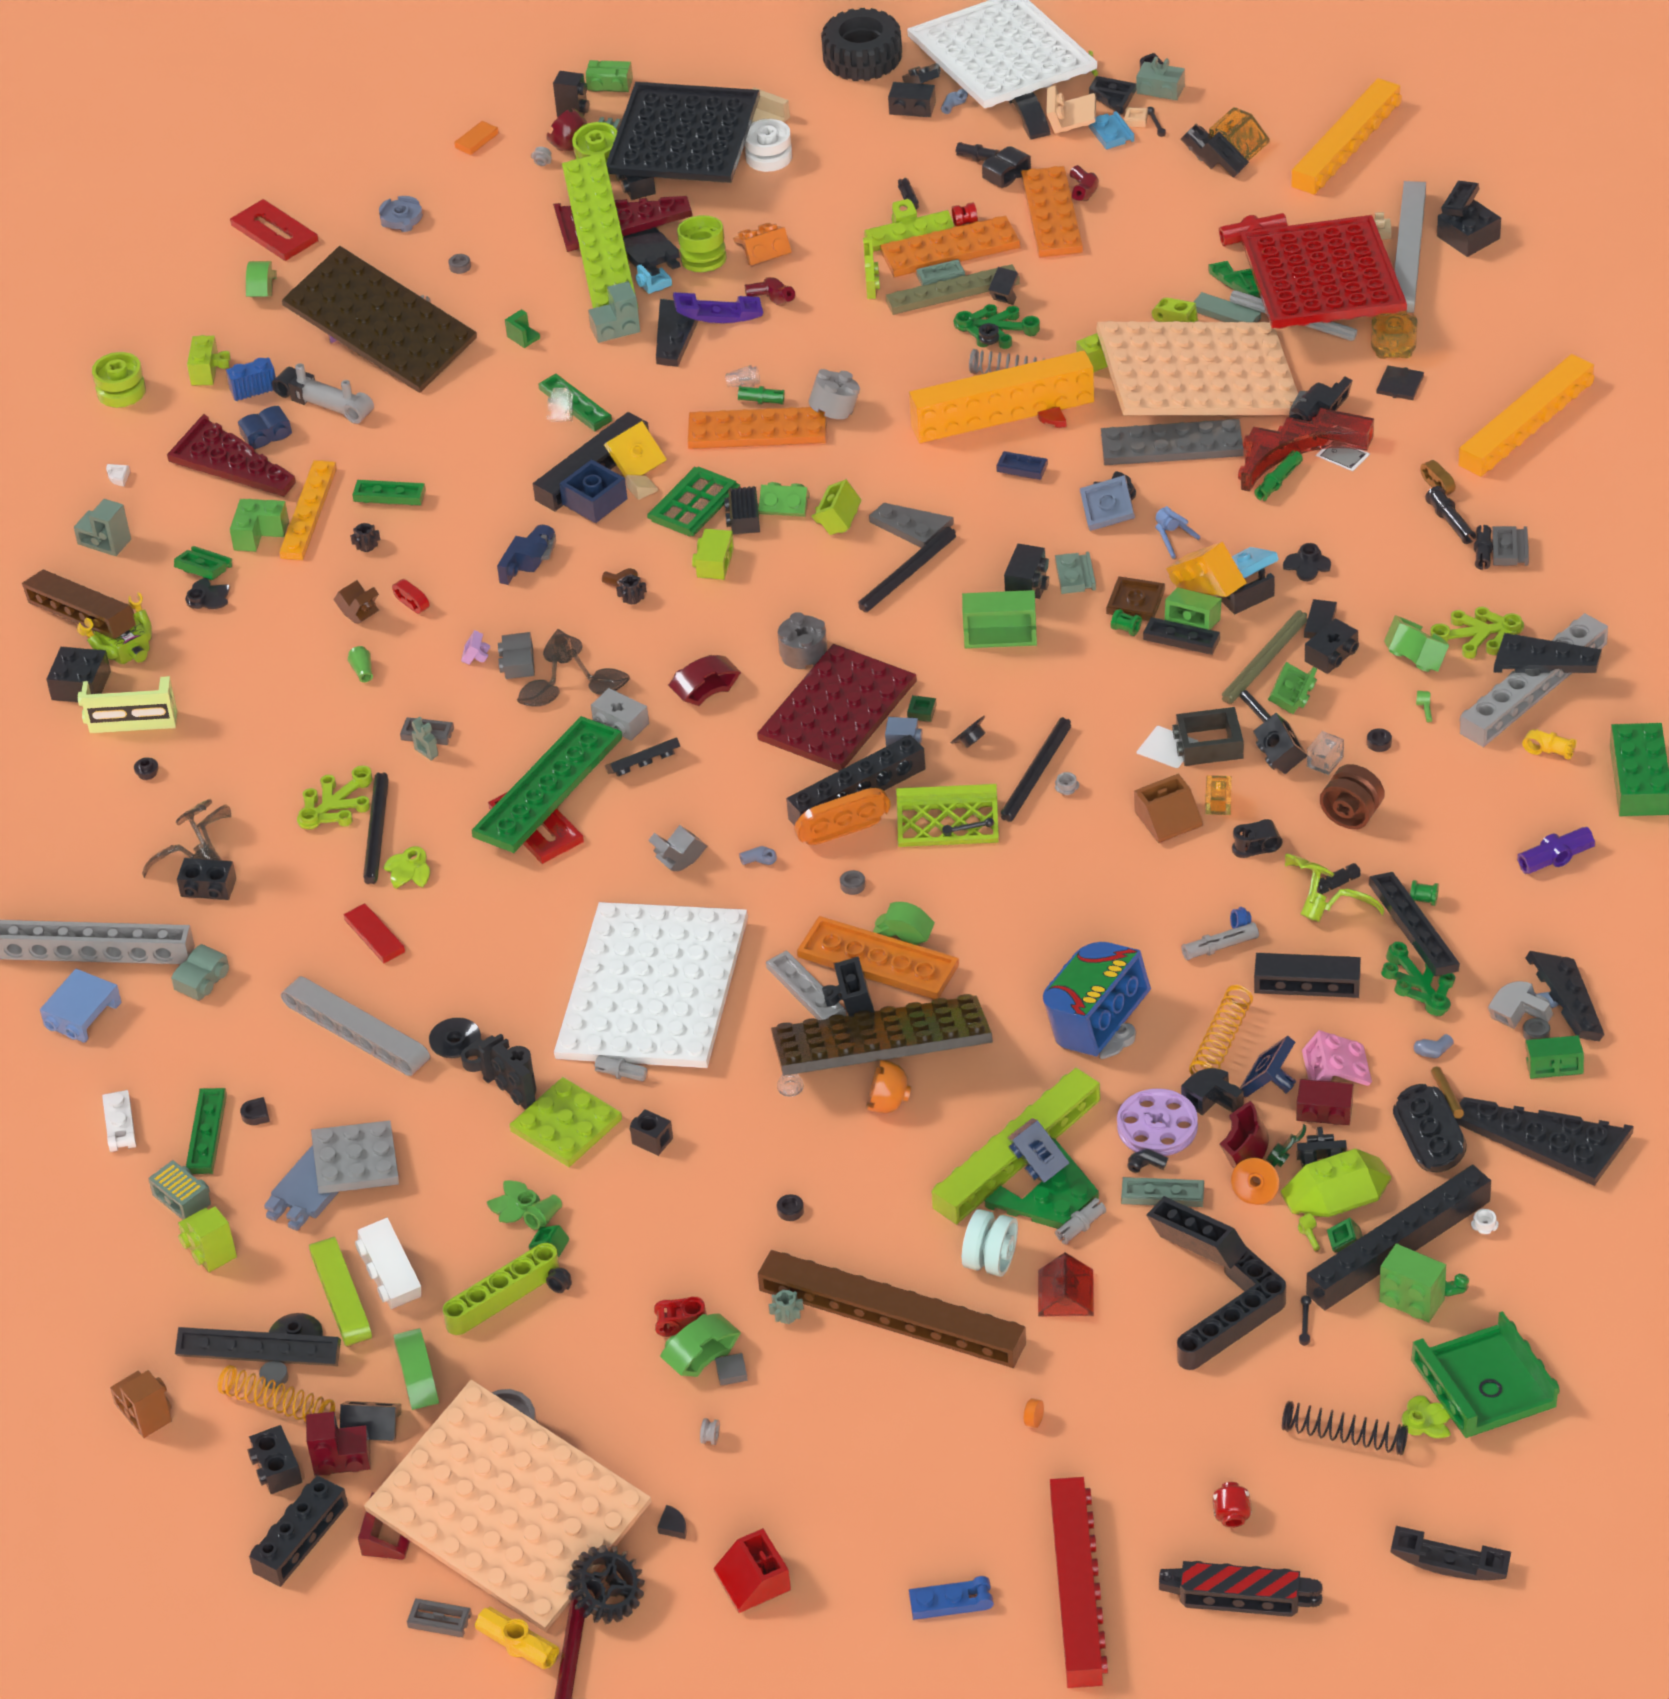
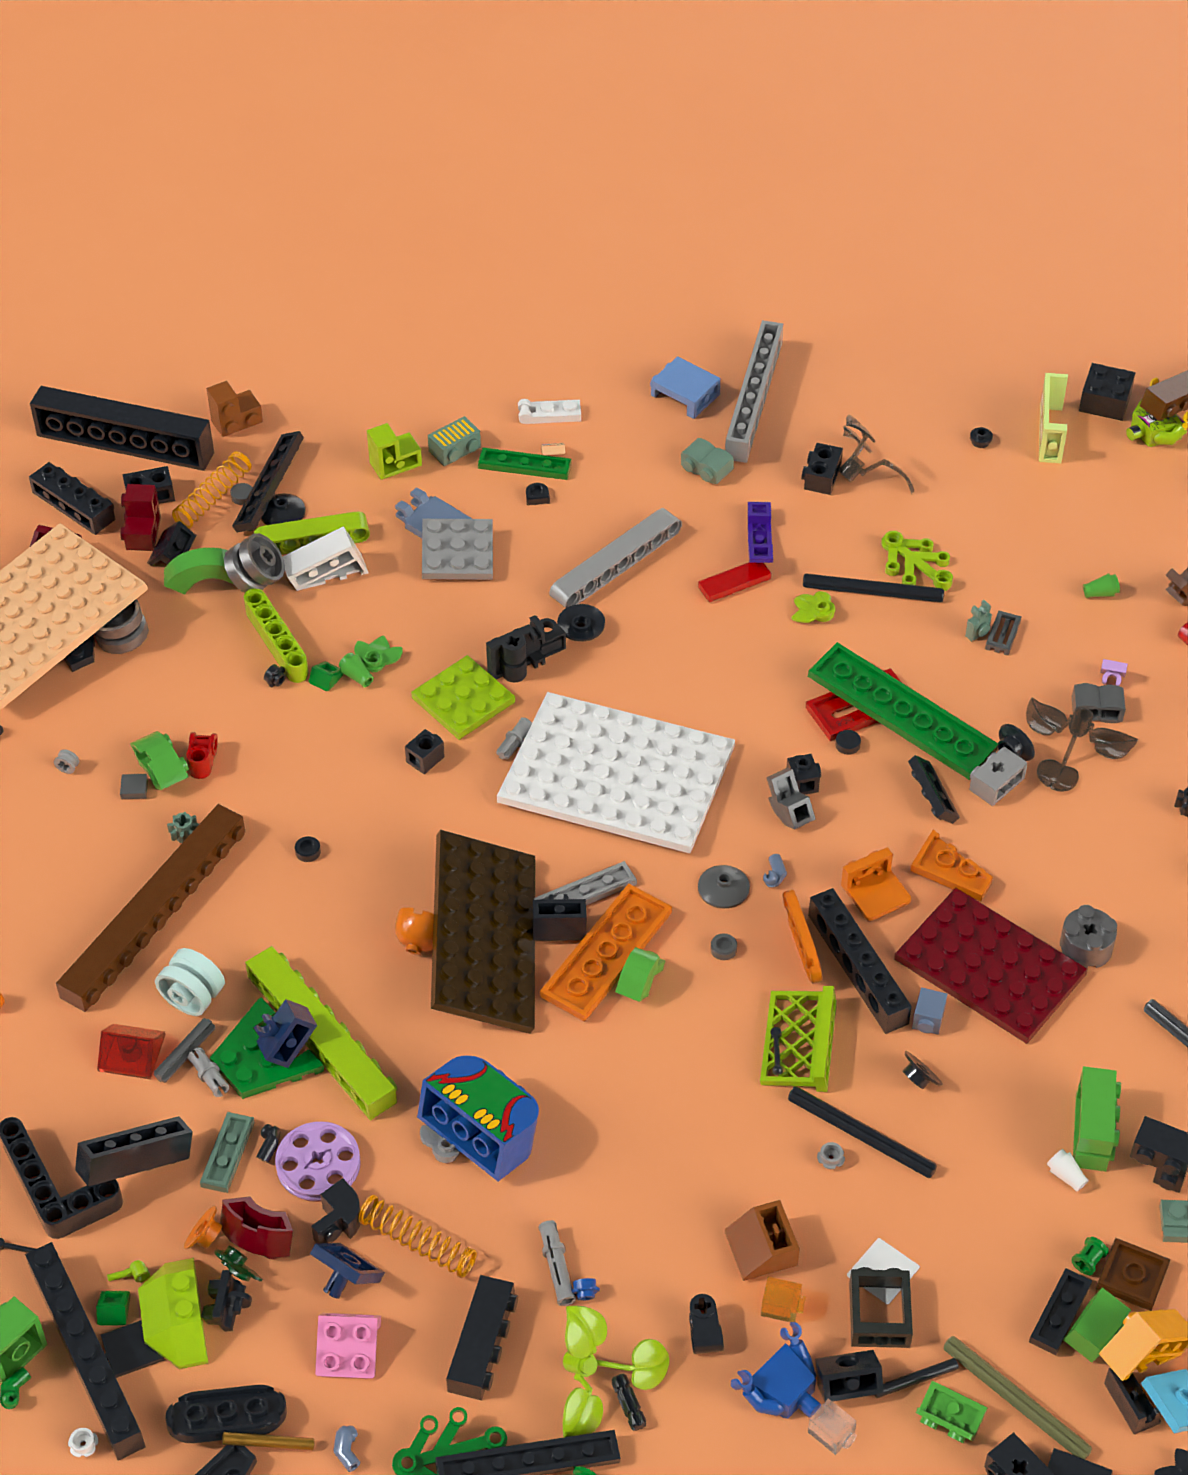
camera: 95 degrees right, 5 degrees up
(183, 1499) = (122, 428): none -> black brick
(186, 1104) = (553, 448): none -> light nougat tile
(312, 921) = (759, 532): none -> dark purple slope
(412, 1307) = (254, 563): none -> flat silver wheel
(582, 699) = (1016, 741): none -> black piece
(587, 824) = (848, 742): none -> black tile
(637, 844) = (806, 773): none -> black brick
(704, 678) = (1038, 846): dark red brick -> none
(735, 739) = (947, 867): none -> orange wing
(768, 784) = (874, 885): none -> orange bracket
(779, 893) = (727, 893): none -> dark grey dish
(922, 708) = (971, 1036): dark green plate -> none
(1045, 641) = (1067, 1169): none -> white cone
(1057, 1246) = (181, 1052): none -> dark grey axle
(1291, 783) = (783, 1380): none -> blue torso
(1324, 1102) = (292, 1317): dark red brick -> none
(1352, 796) = (736, 1429): copper wheel -> none
(1378, 1212) = (127, 1349): none -> black piece

